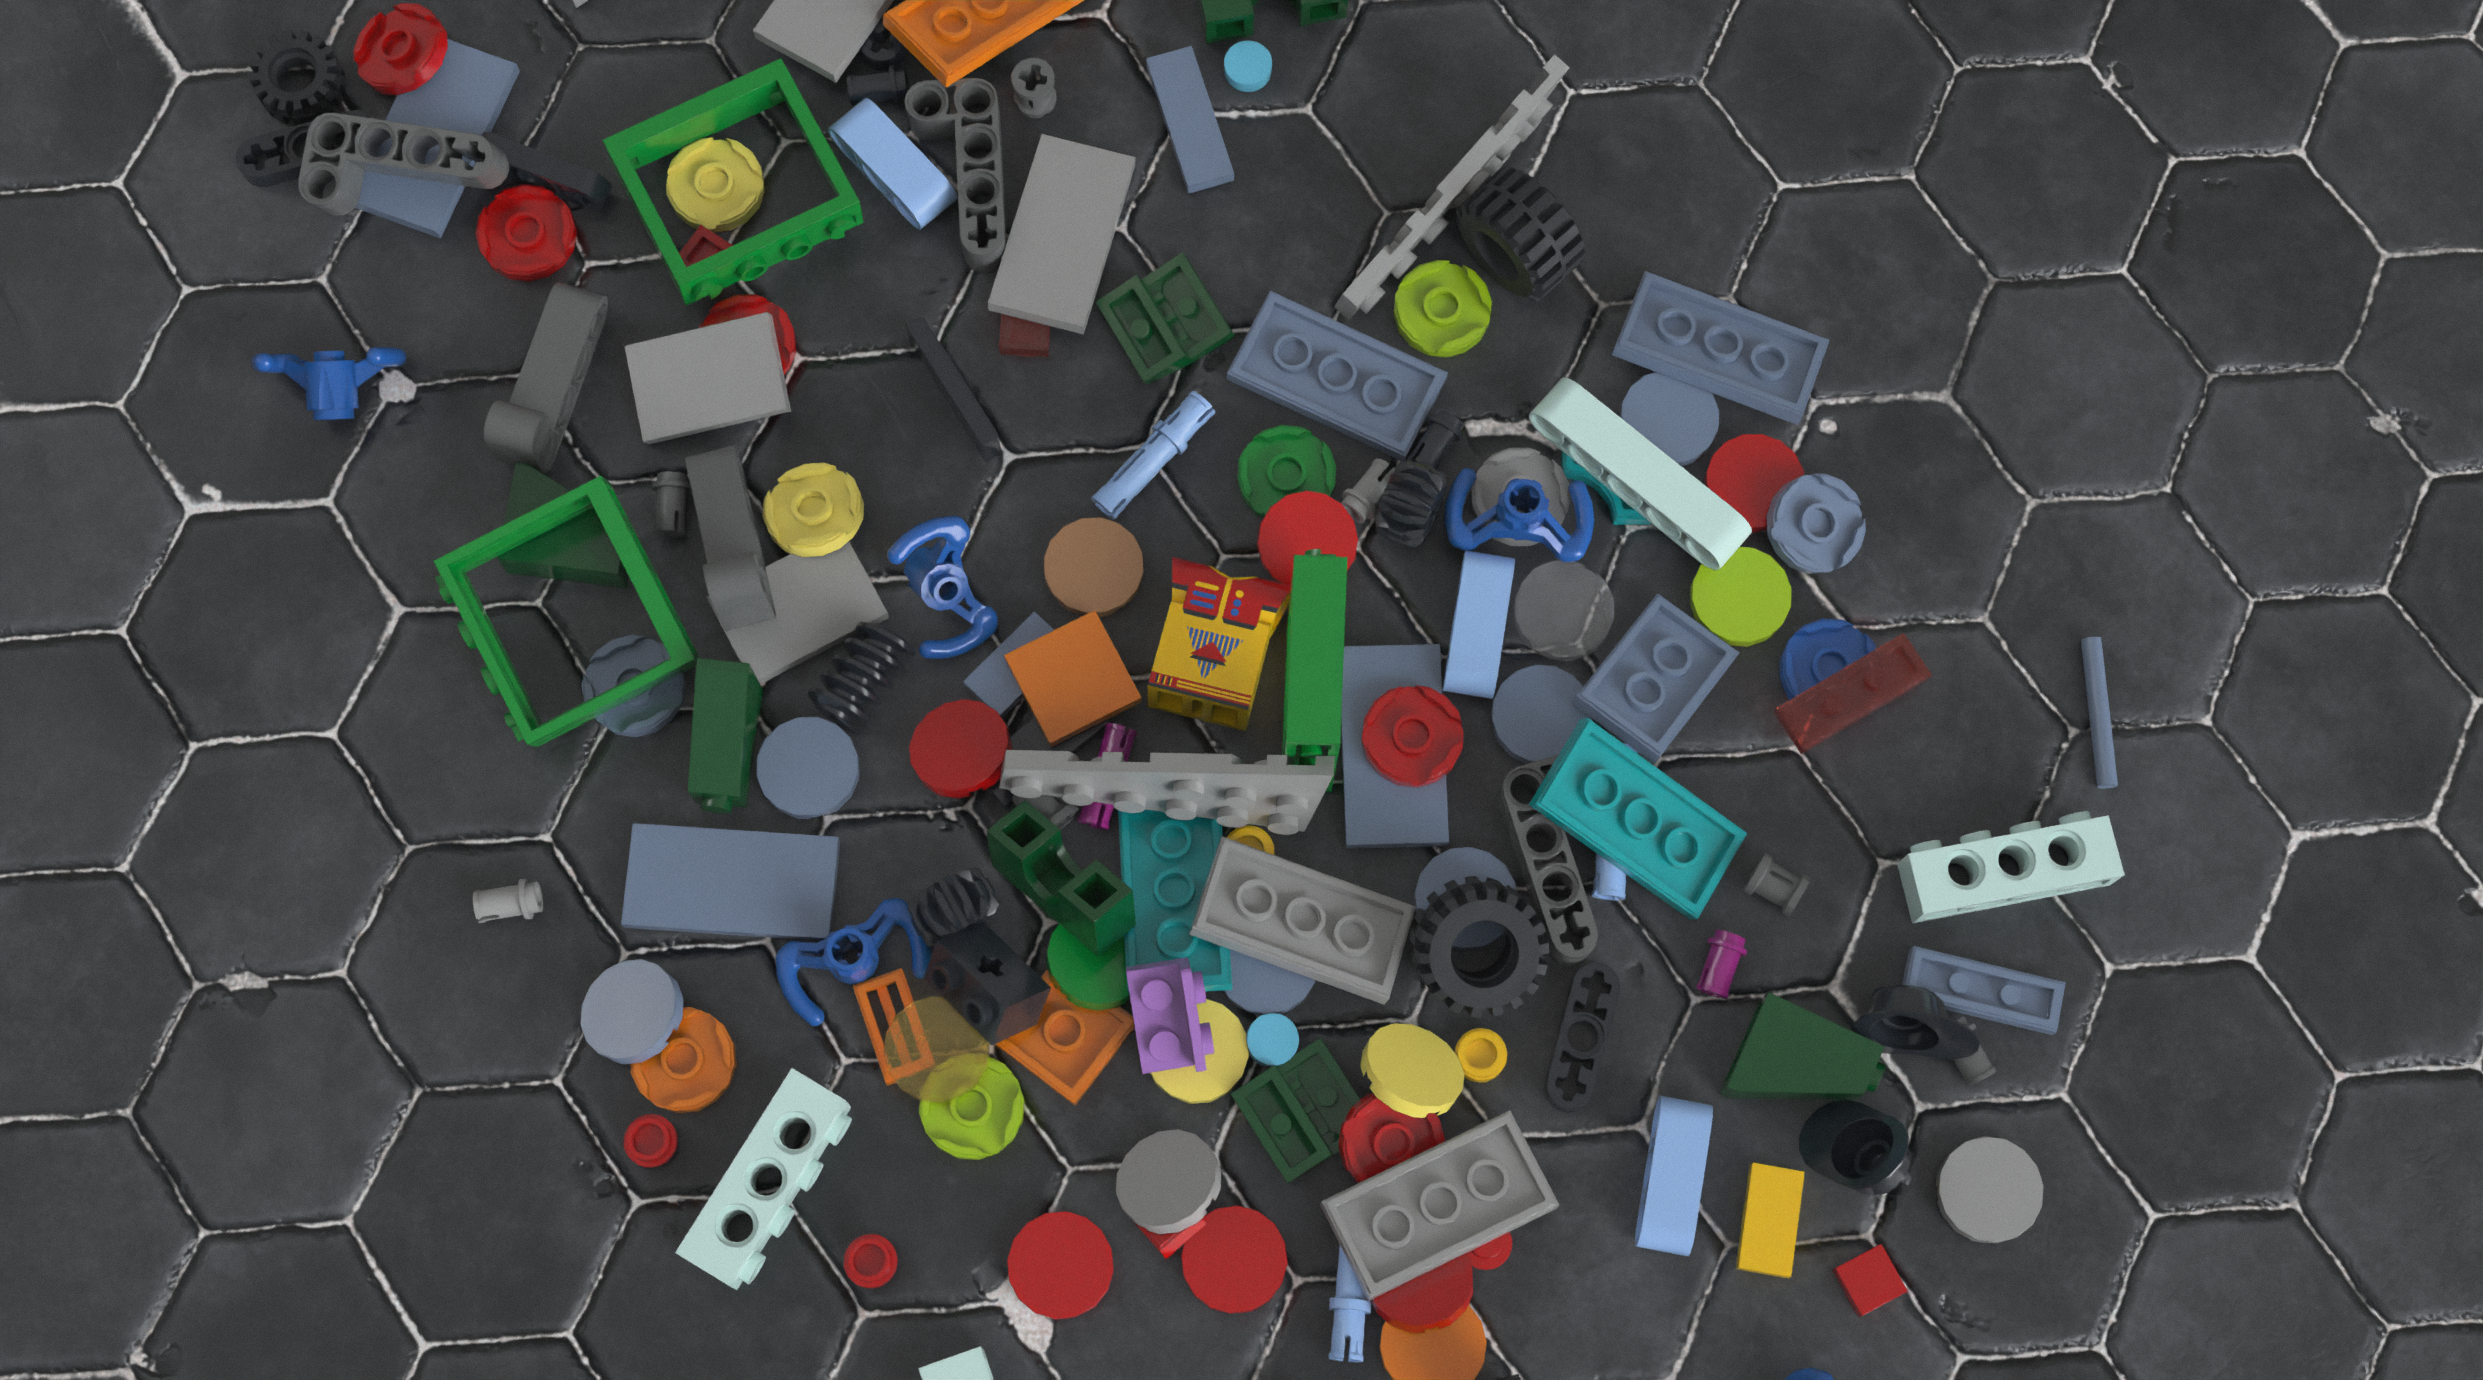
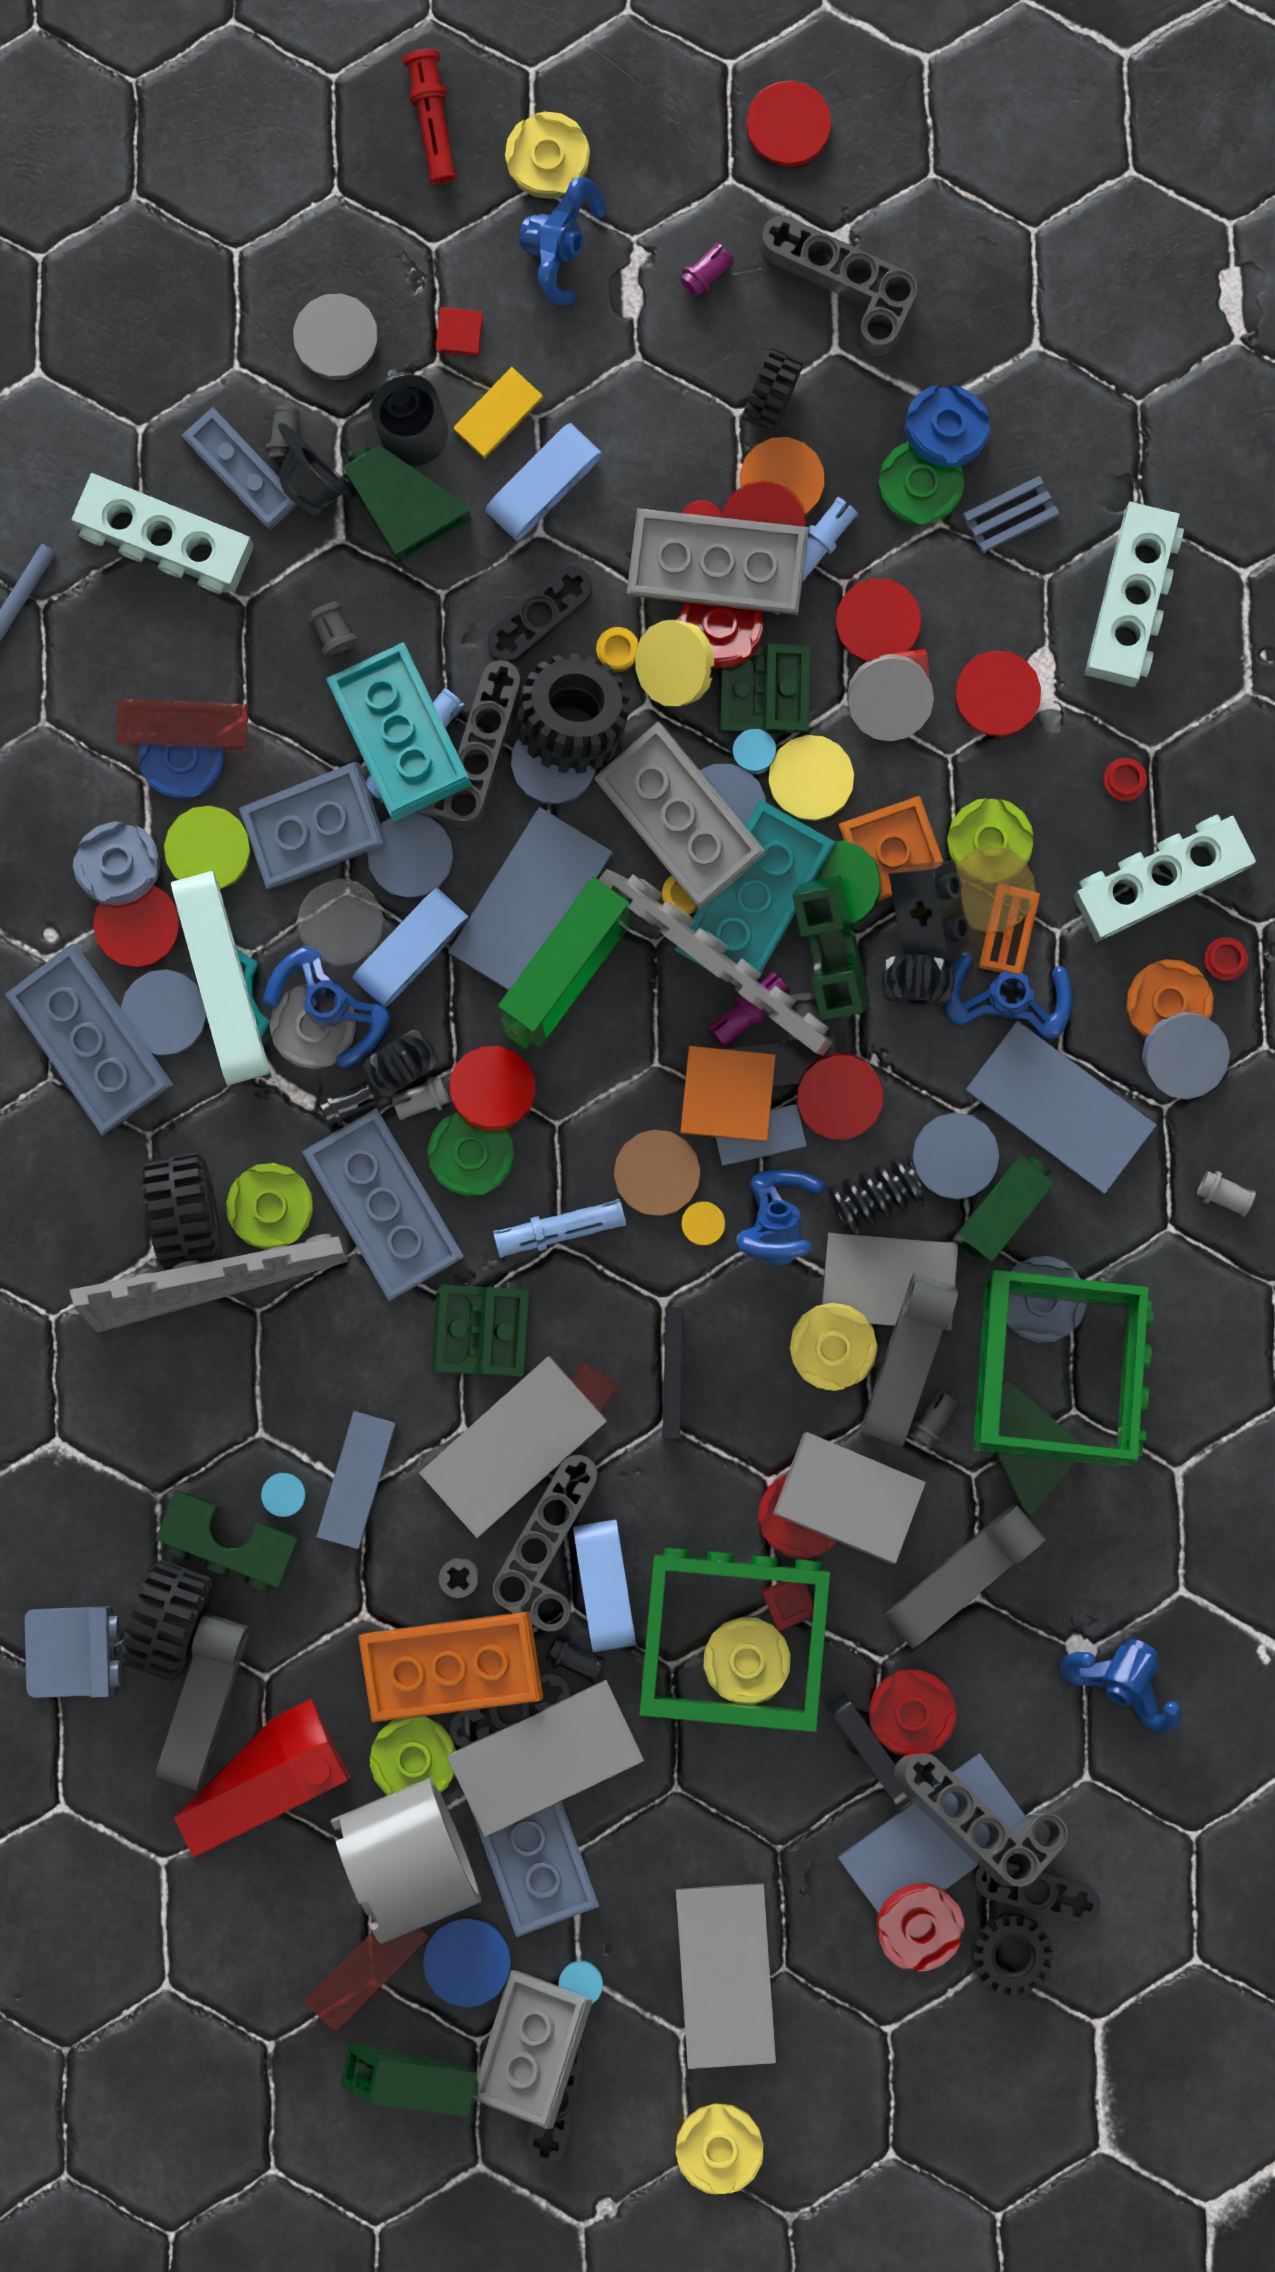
camera: 140 degrees left, 10 degrees up
(1017, 548) = (703, 1223): none -> yellow tile
(1166, 1015) = (820, 804): medium lavender bracket -> none
(1214, 643) = (607, 1056): piece -> none
(1412, 736) = (514, 896): red tile -> none
(1721, 963) = (409, 601): magenta pin -> none

